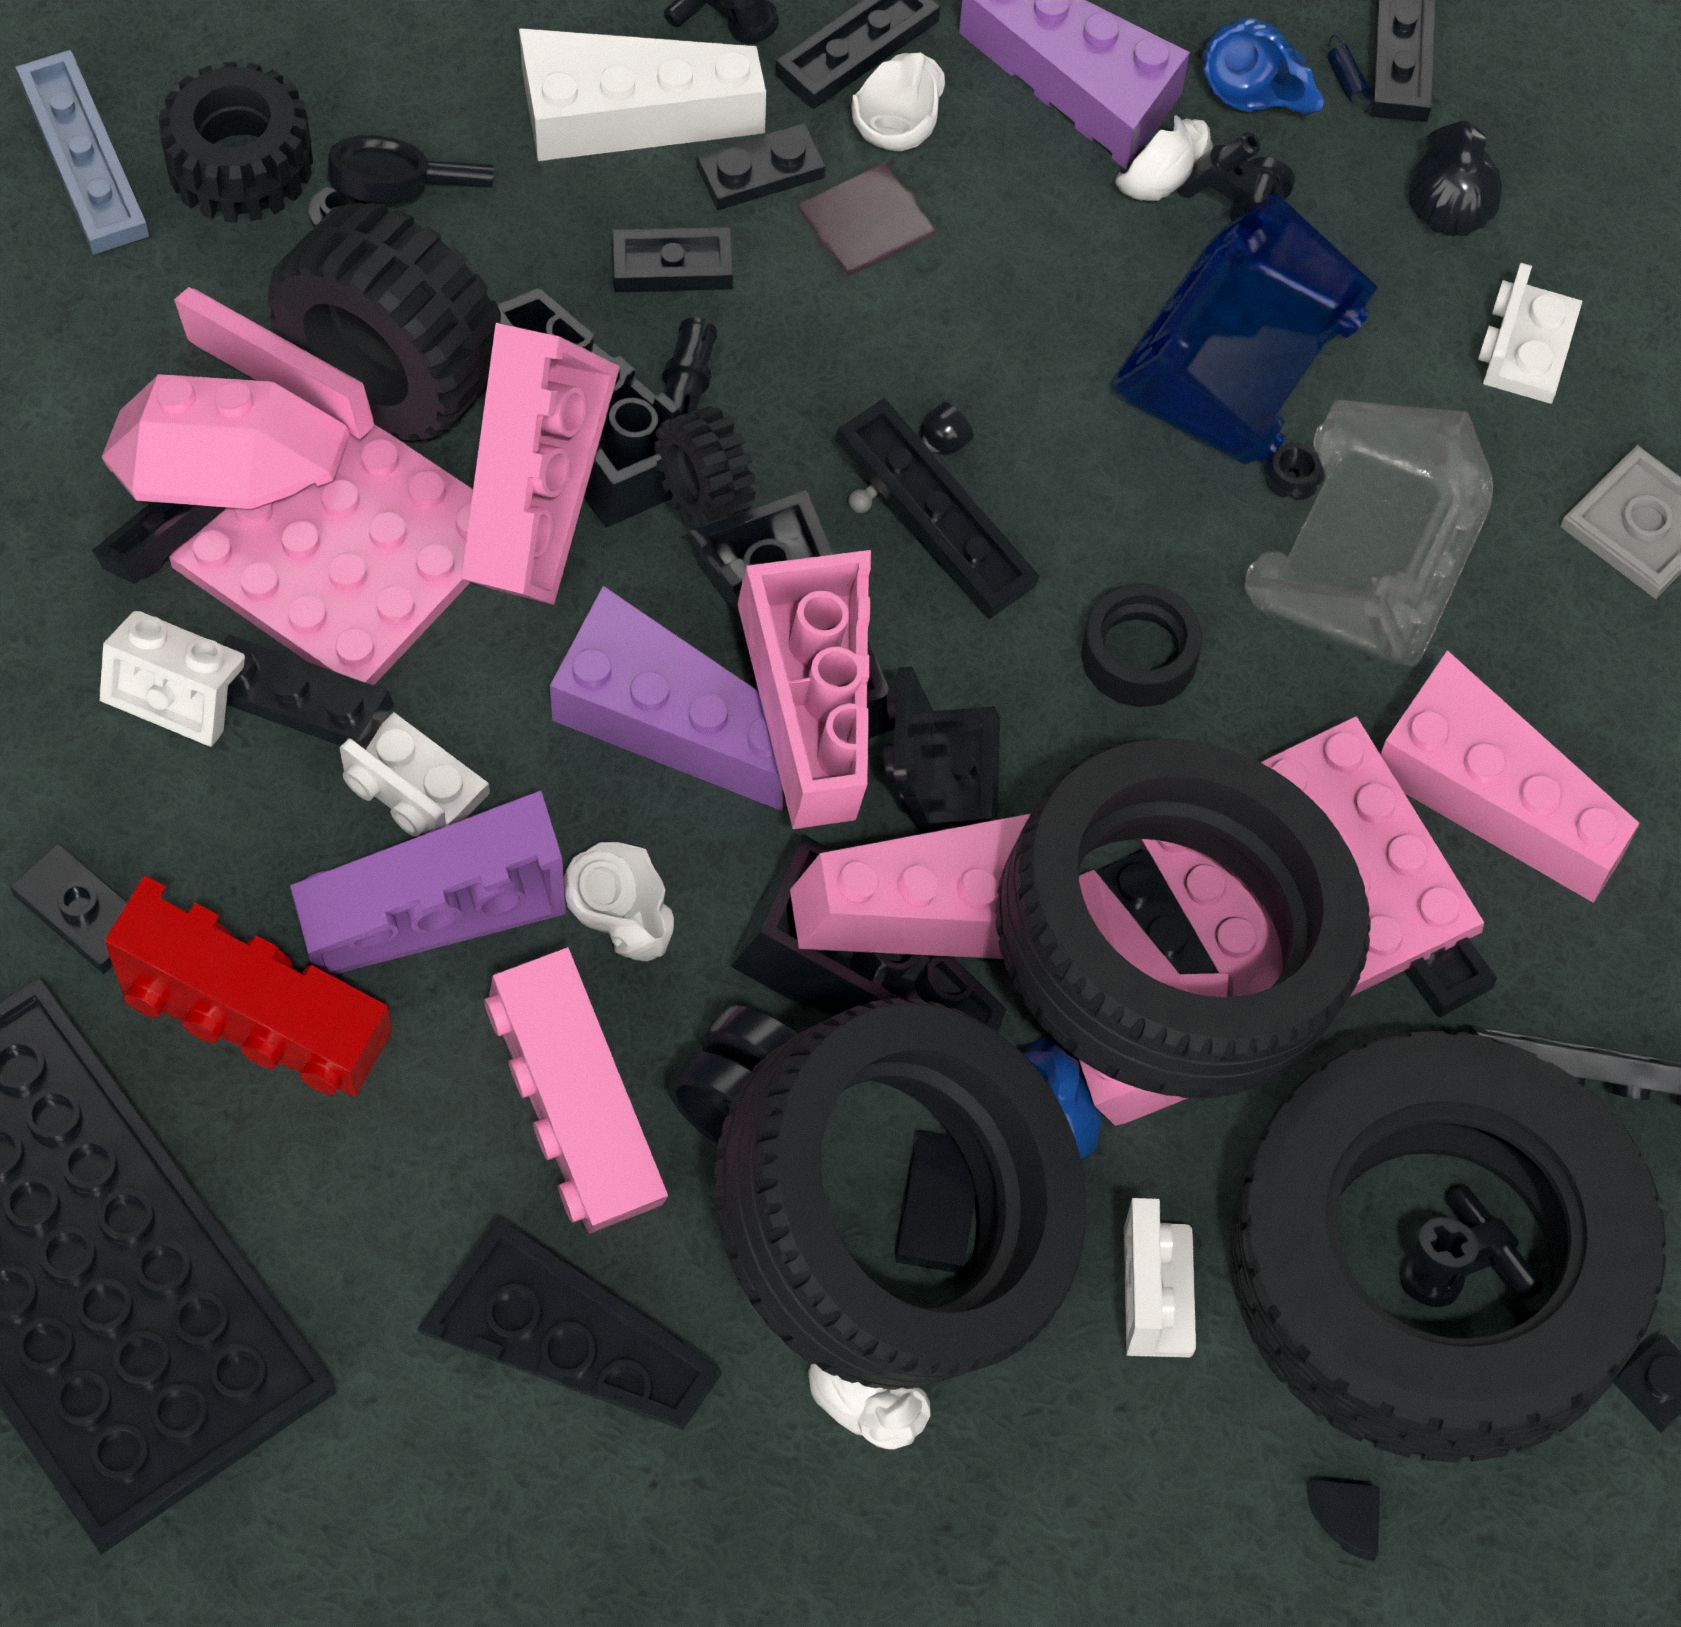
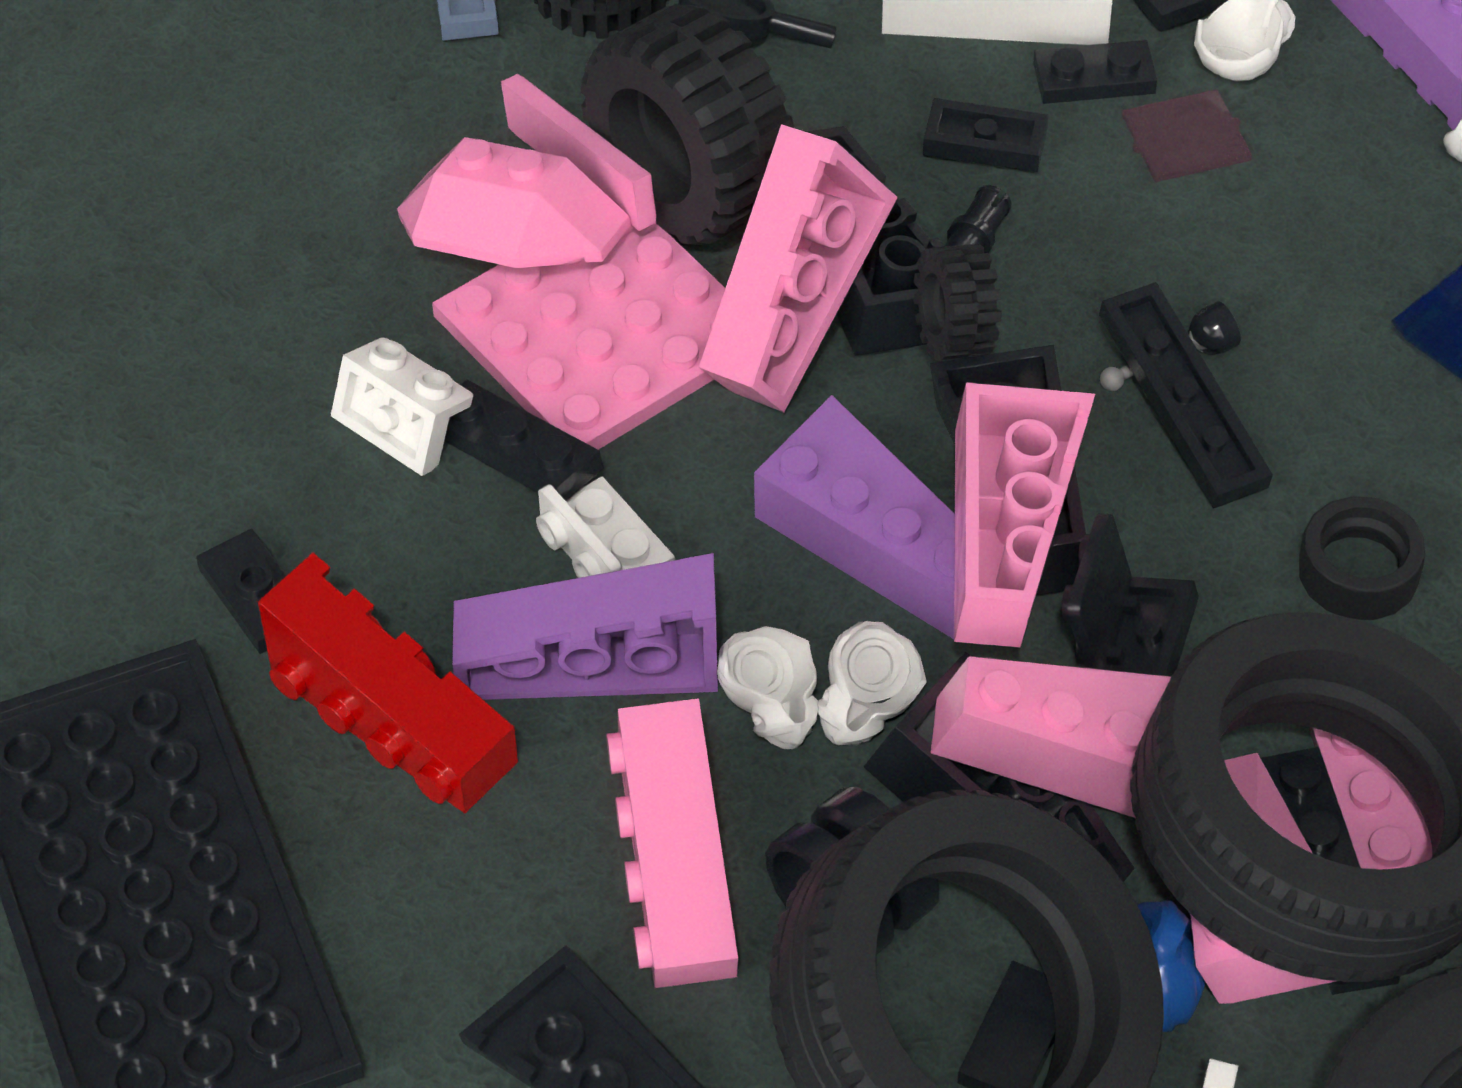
camera: 20 degrees right, 10 degrees down
(150, 537) = (410, 287): black plate -> none
(705, 861) = (863, 668): none -> white hair

